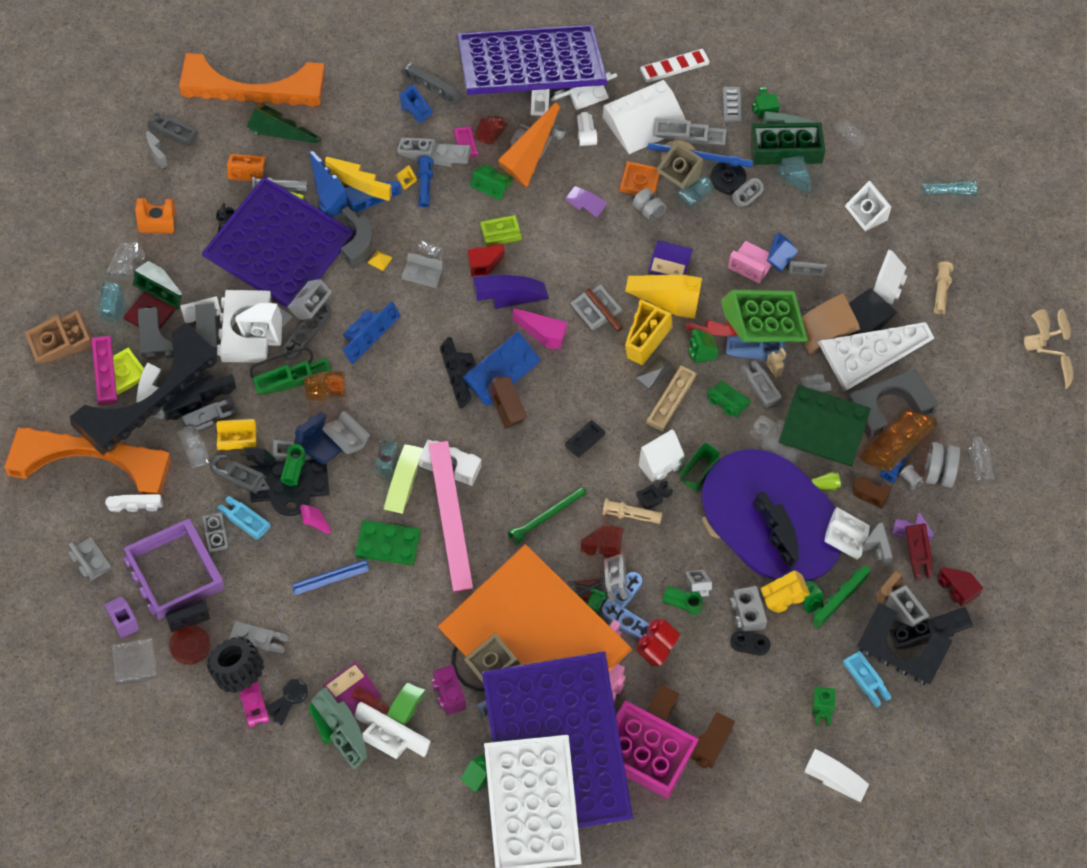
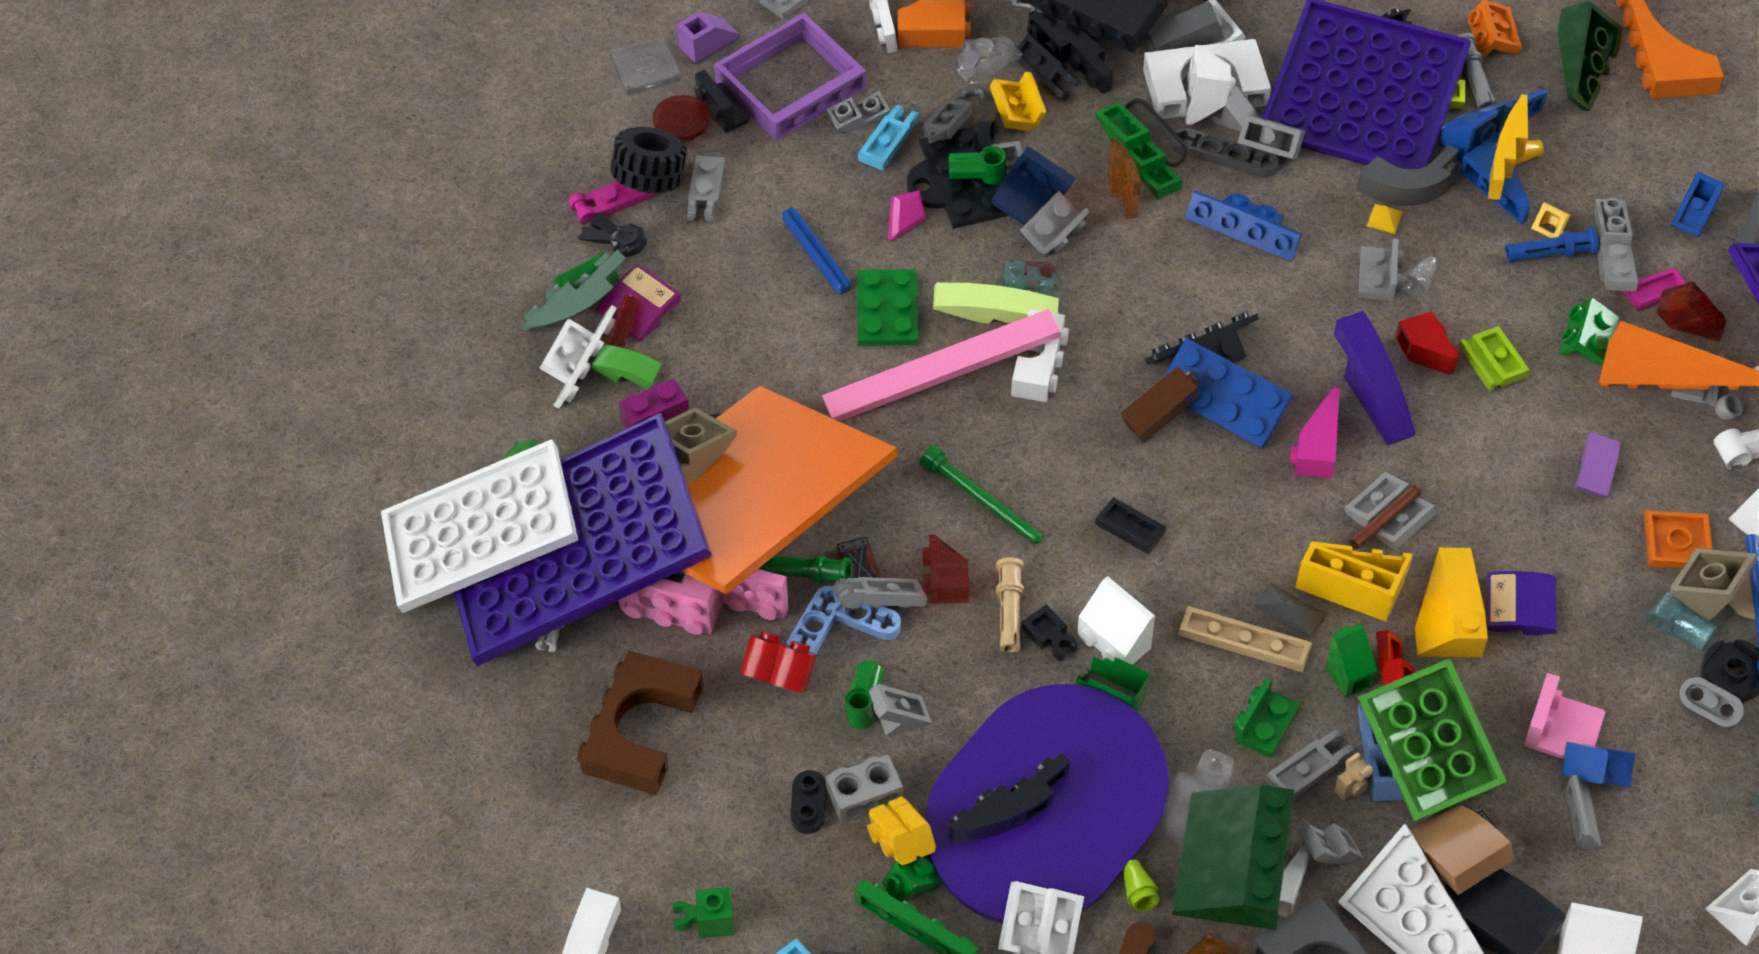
camera: 85 degrees right, 5 degrees down
(649, 204) = (1623, 551): light grey wheel -> none
(653, 749) = (585, 668): dark pink slope -> none

